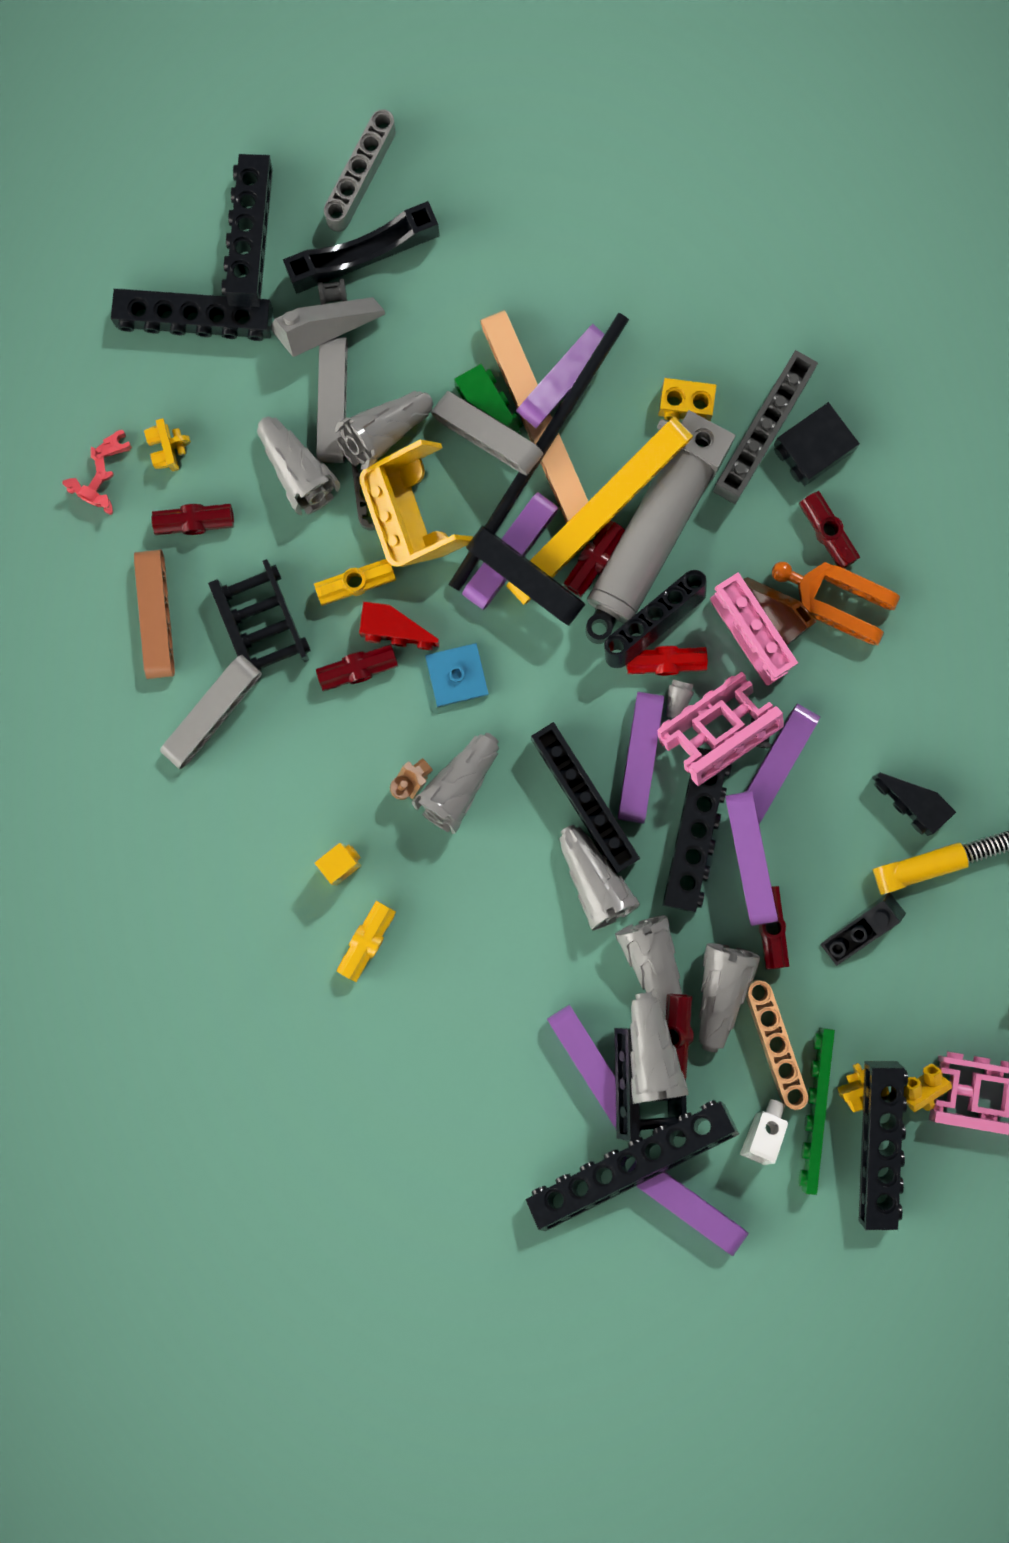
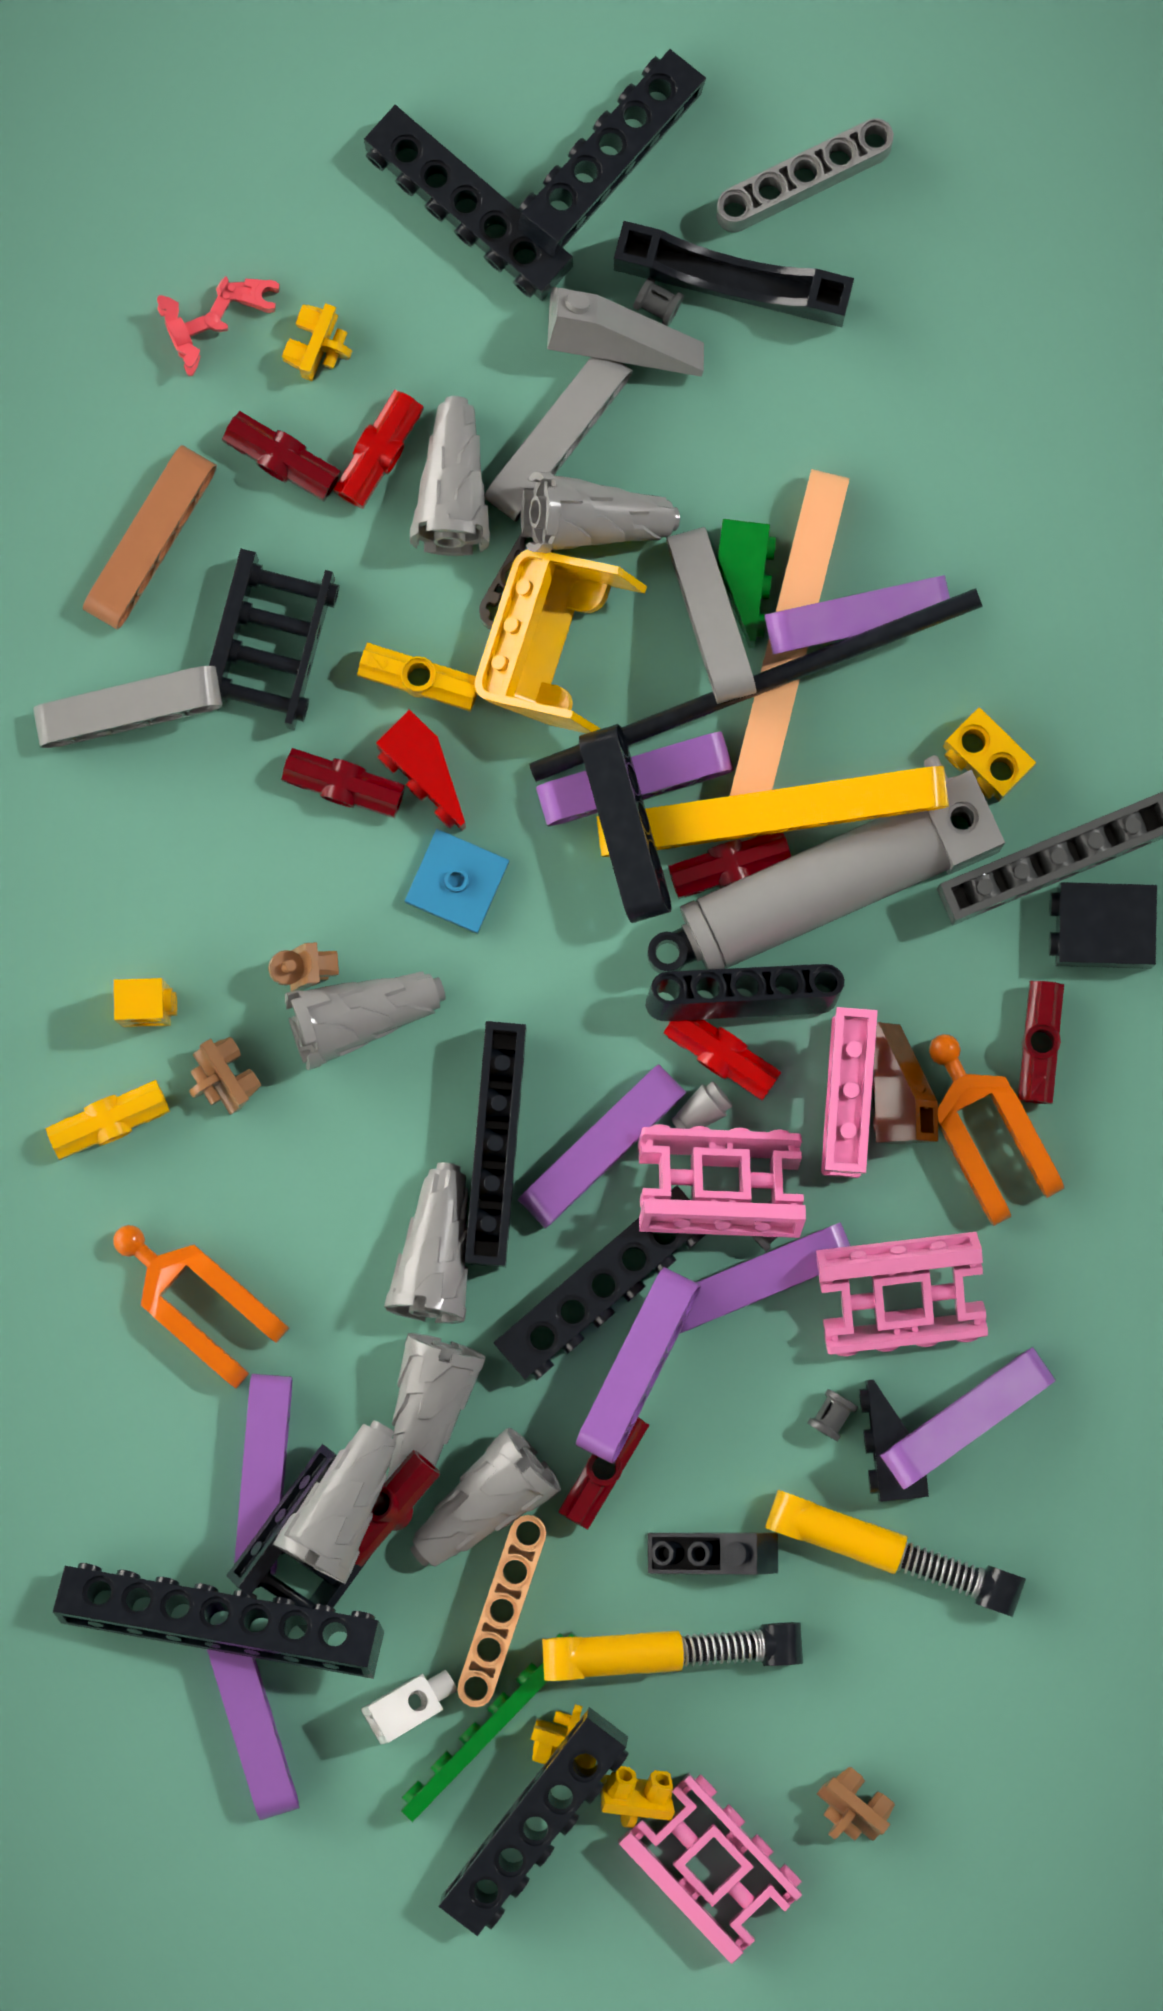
camera: 35 degrees right, 0 degrees up
(242, 477) = (378, 449): none -> red piece
(409, 875) = (217, 1080): none -> medium nougat hips
(457, 1002) = (163, 1272): none -> orange piece
(839, 1039) = (668, 1651): none -> piece
(846, 702) = (900, 1264): none -> bright pink fence
(870, 808) = (832, 1415): none -> dark grey bush
(945, 755) = (967, 1418): none -> medium lavender beam

